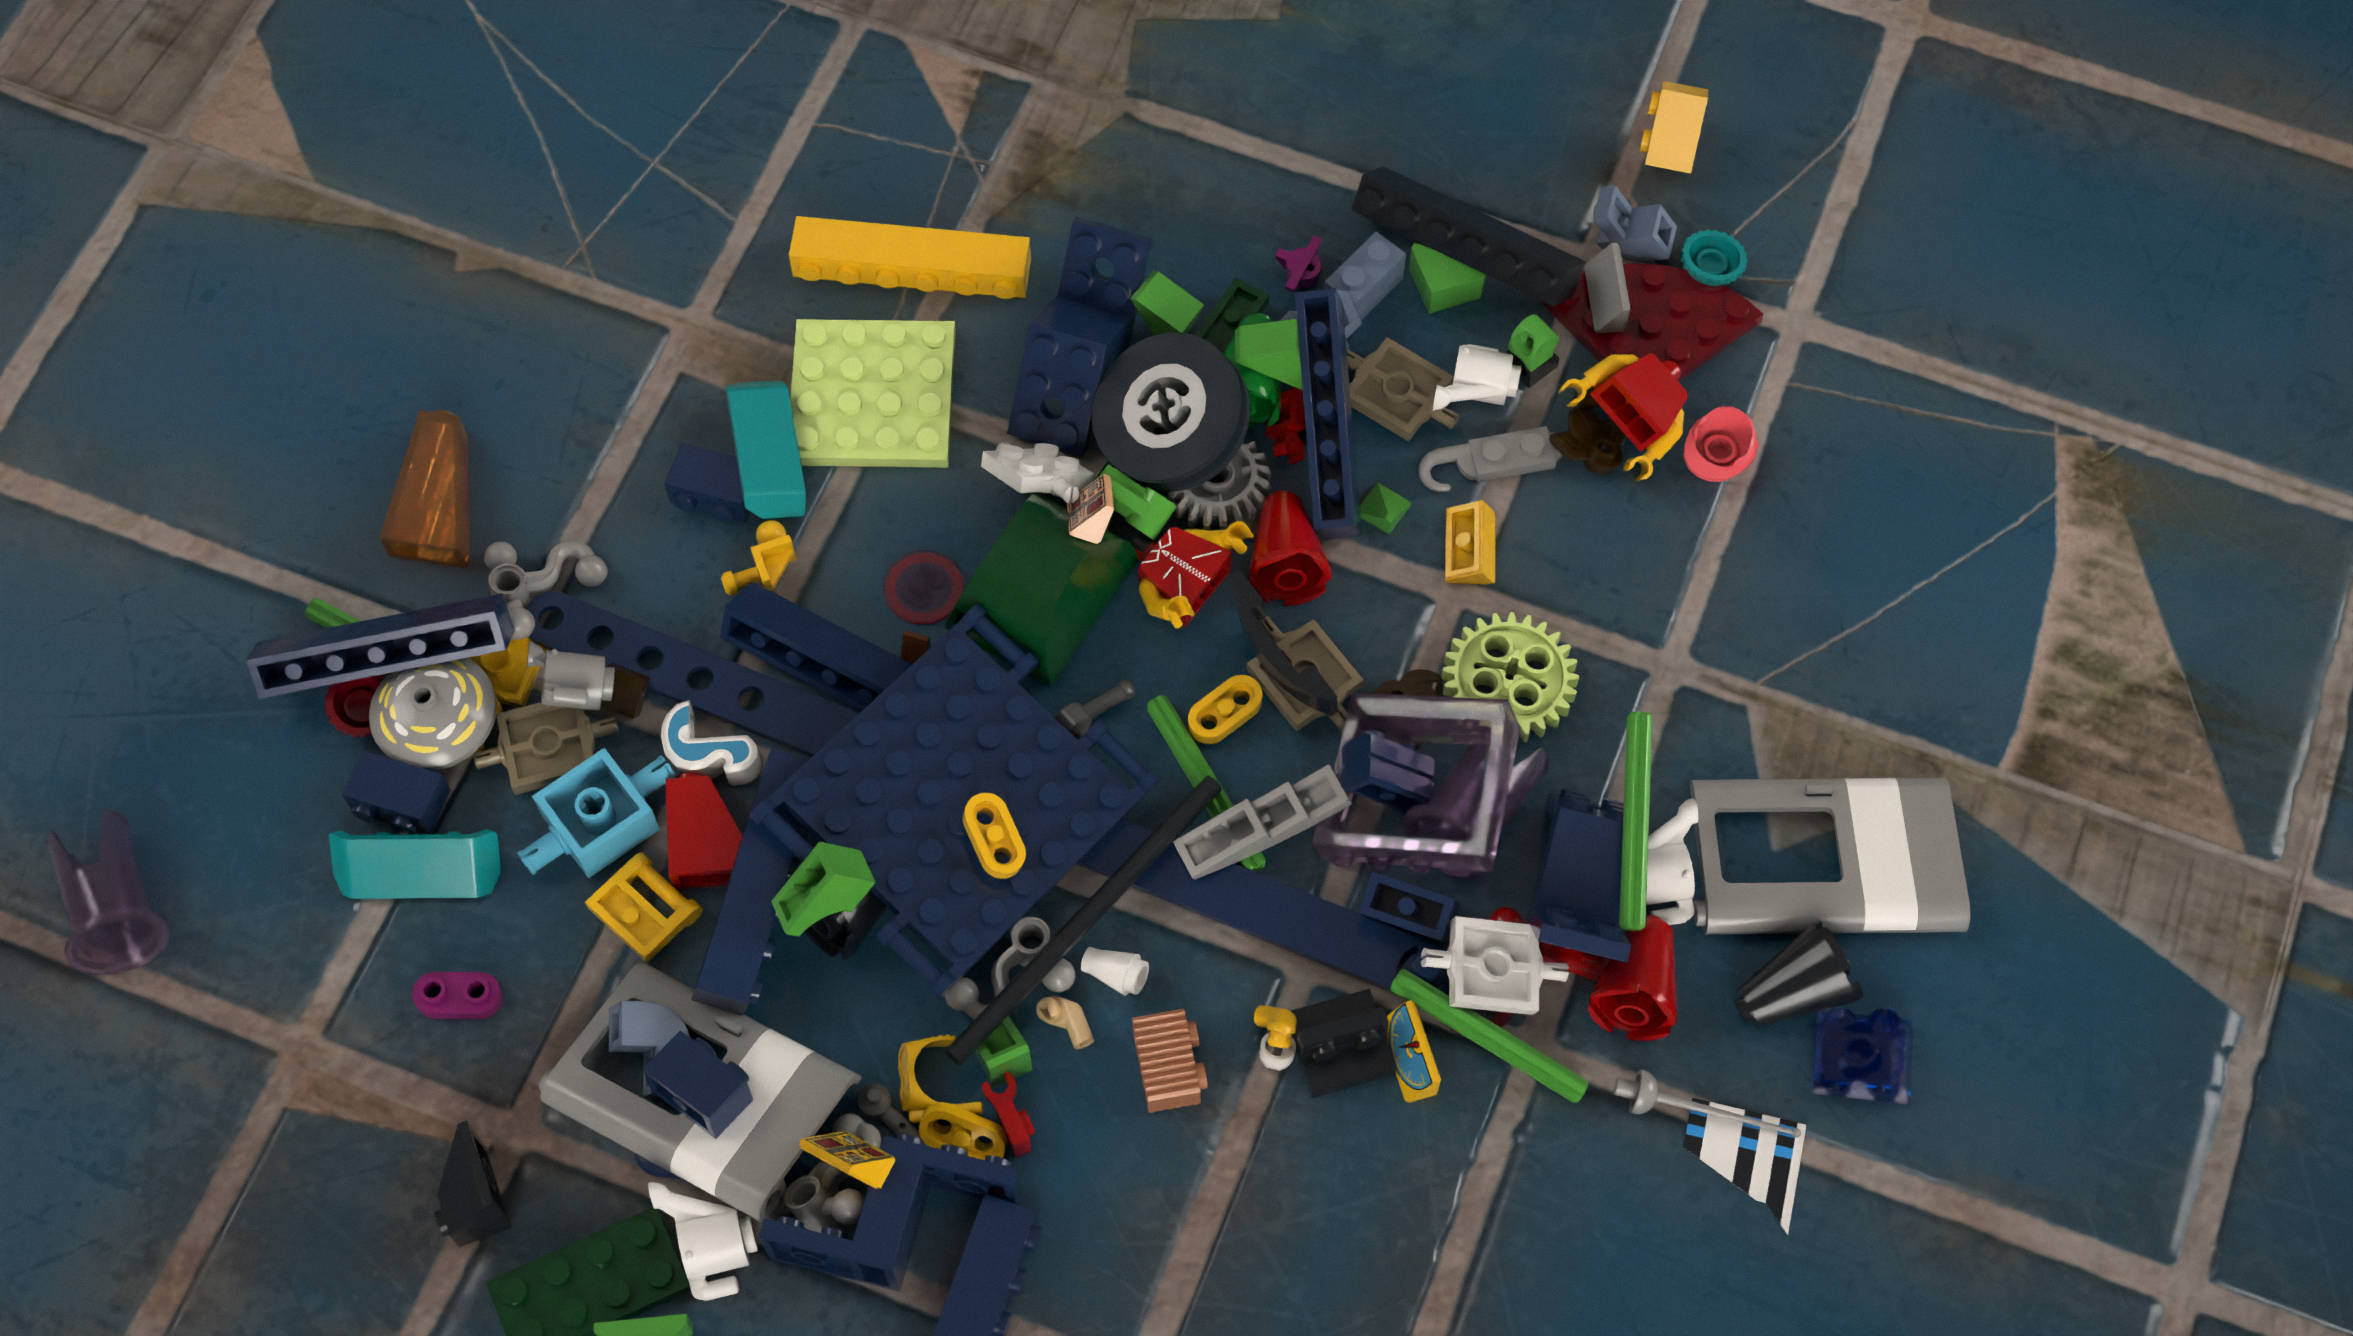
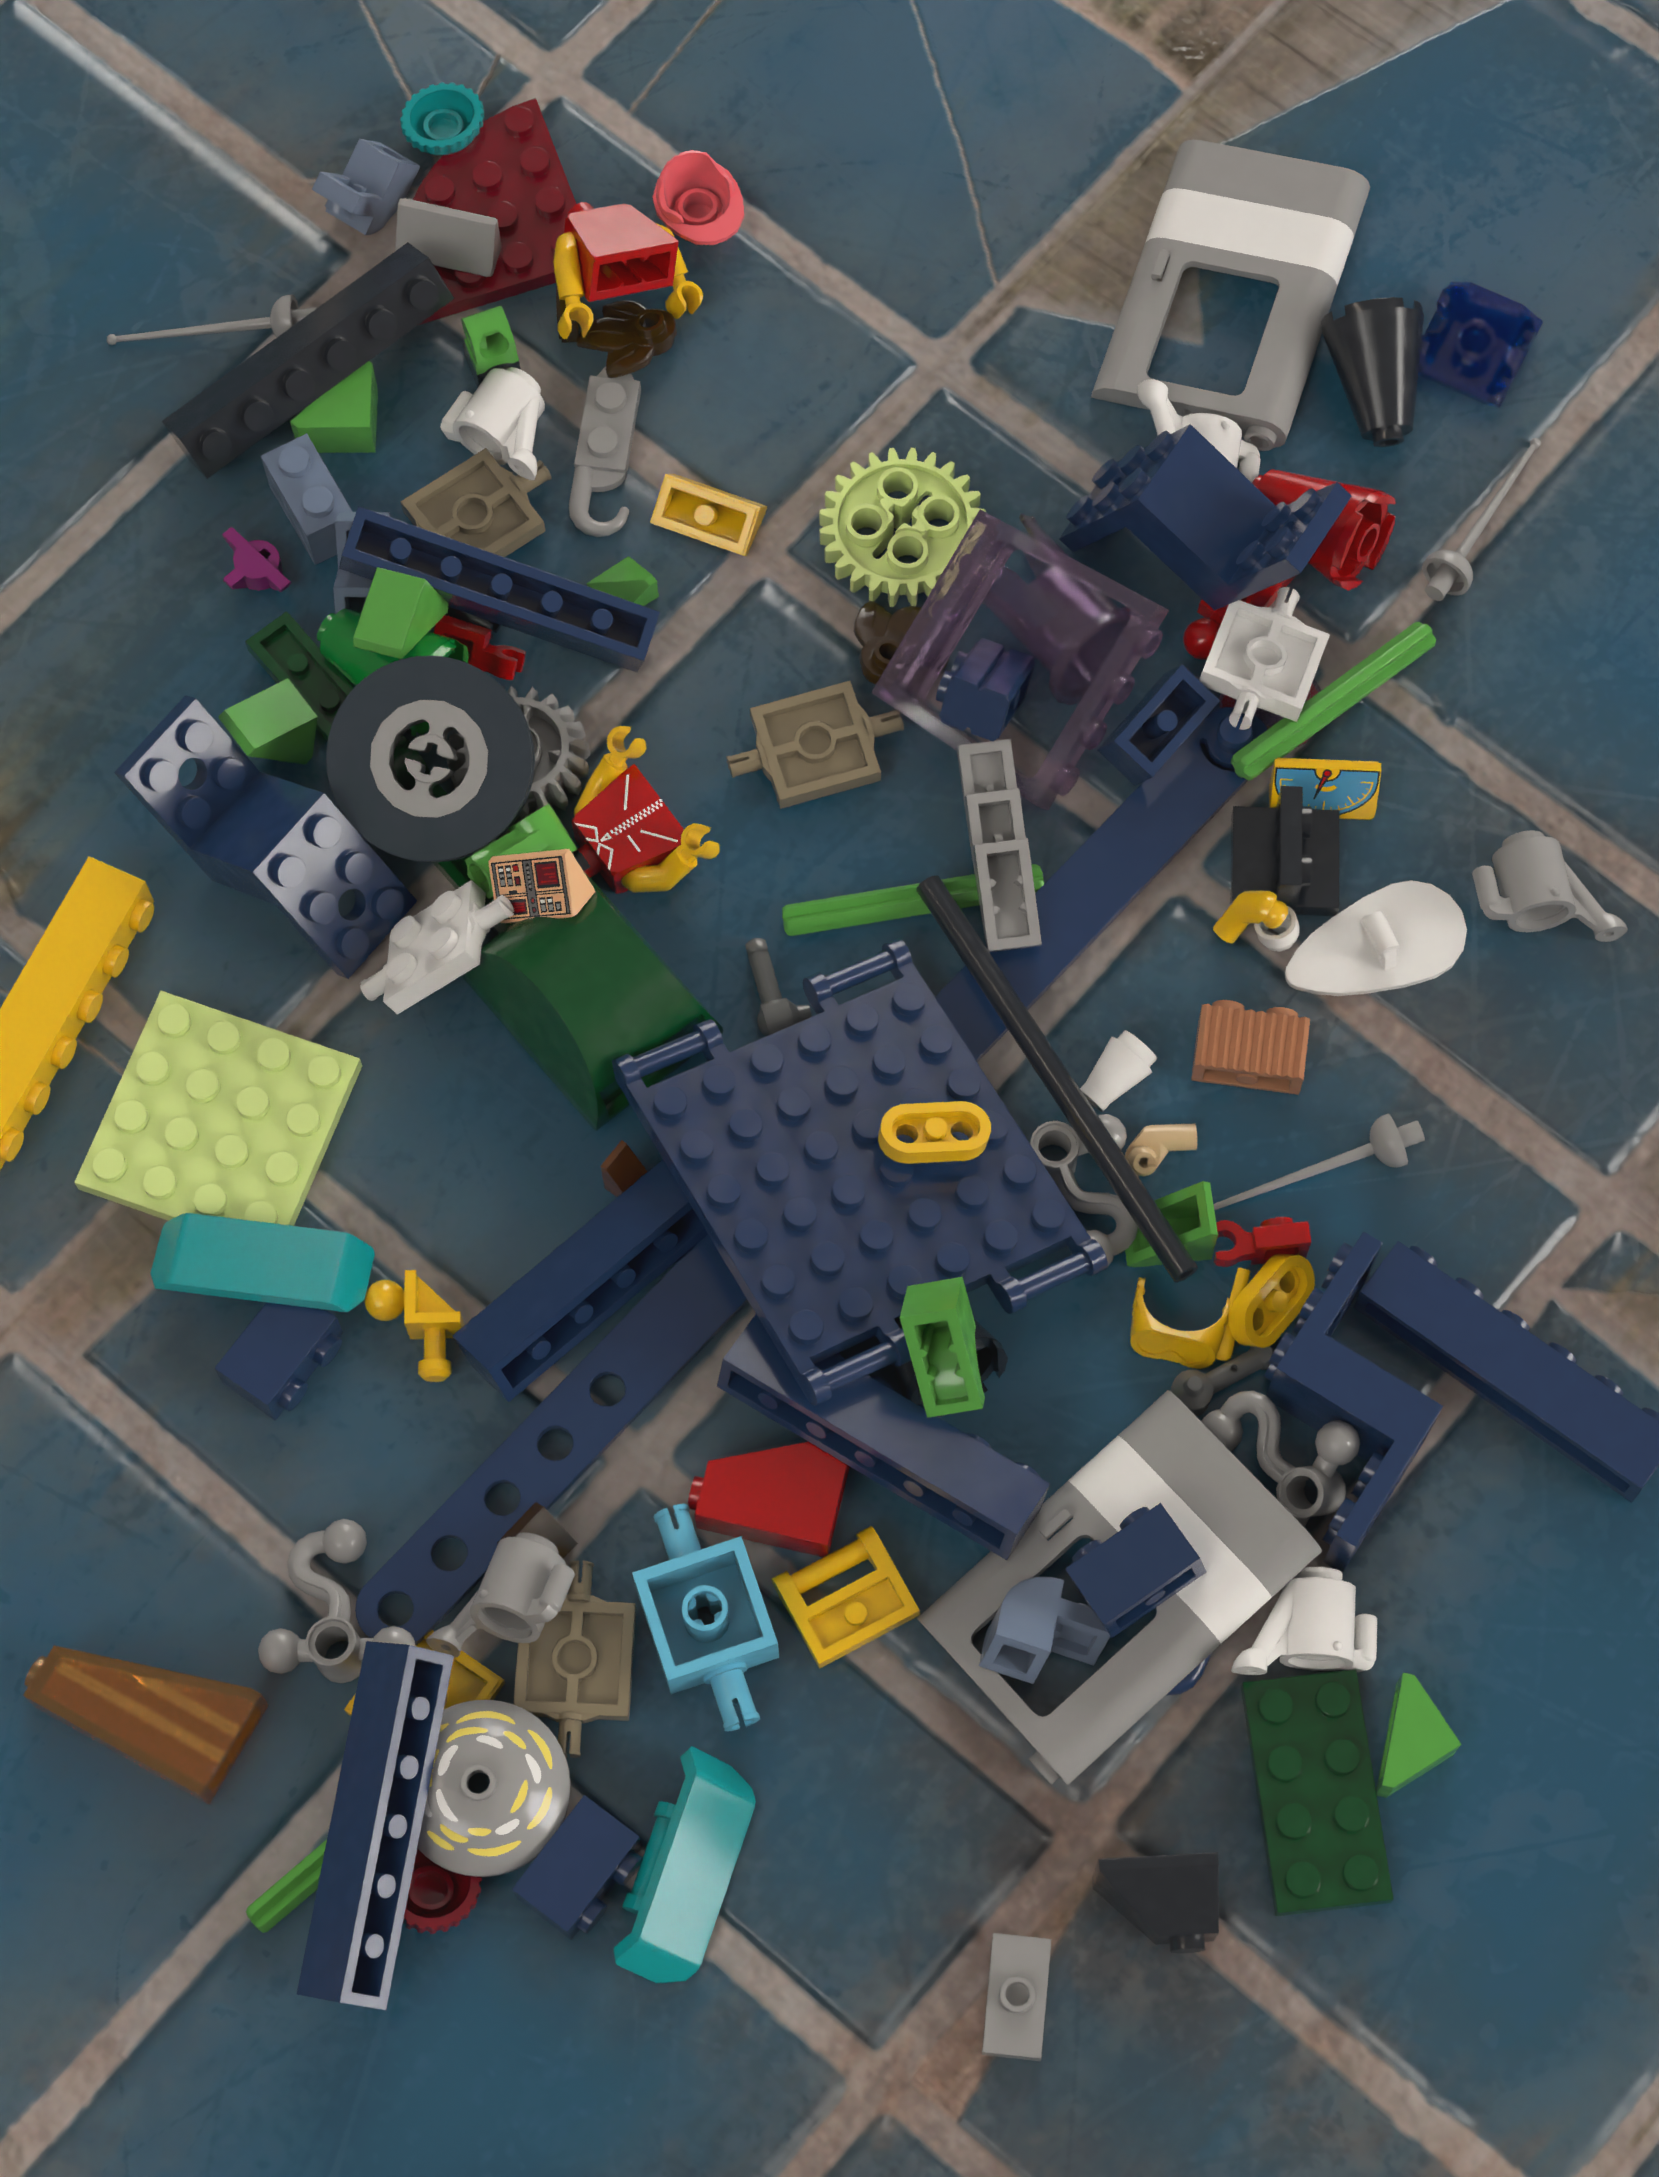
camera: 70 degrees left, 5 degrees up
(380, 1117) = (1016, 1997): none -> light grey plate
(455, 995) = (882, 1859): magenta plate -> none
(708, 755) = (671, 1470): white animal -> none
(851, 1156) = (1289, 1413): yellow slope -> none
(923, 586) = (522, 1143): piece -> none
(1125, 1185) = (1386, 1142): none -> light grey sword
(1223, 711) = (829, 848): yellow plate -> none
(1287, 553) = (660, 700): red cone -> none
(1300, 1139) = (1381, 943): none -> white shield
(1305, 686) = (717, 768): black slope -> none
(1382, 1240) = (1539, 889): none -> light grey piece
(1504, 212) = (283, 316): none -> light grey sword
(1636, 821) = (1183, 427): bright green axle -> none
(1676, 126) = (255, 85): yellow brick -> none
(1750, 1156) = (1544, 499): sticker -> none

